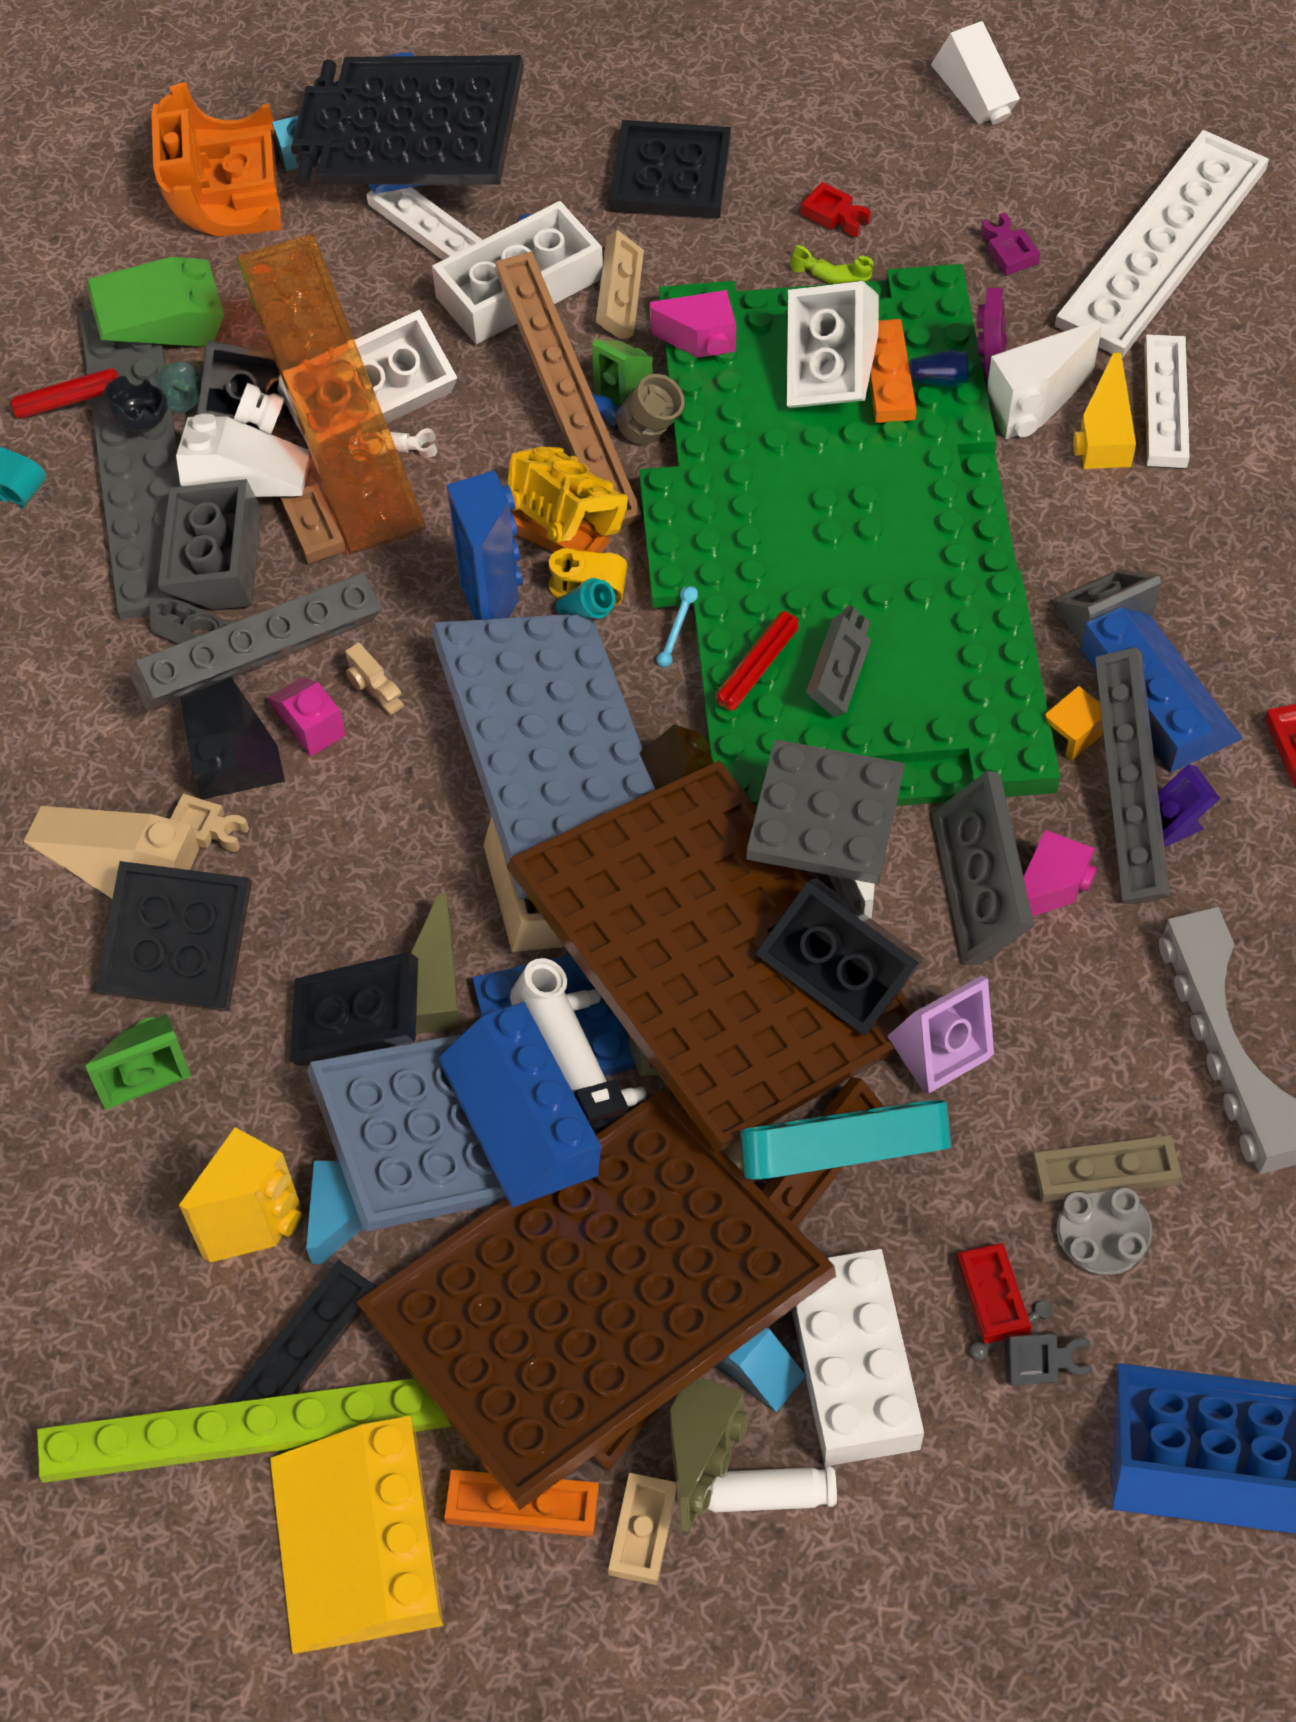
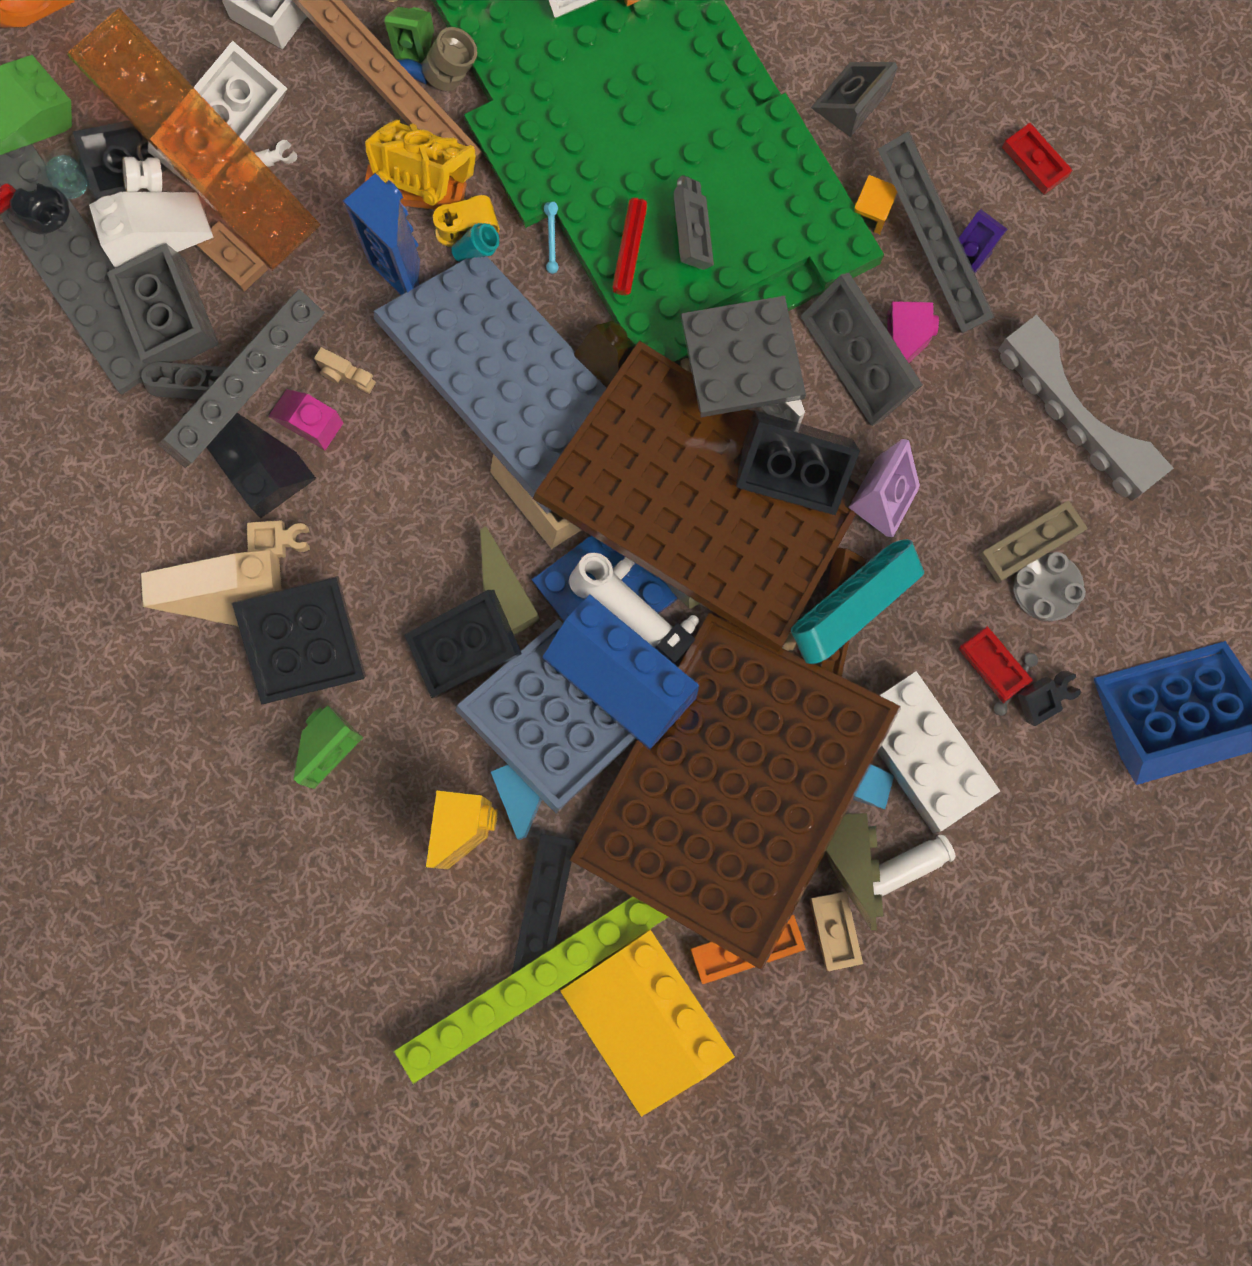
camera: 25 degrees left, 20 degrees up
(1182, 712) = (950, 165): blue slope -> none

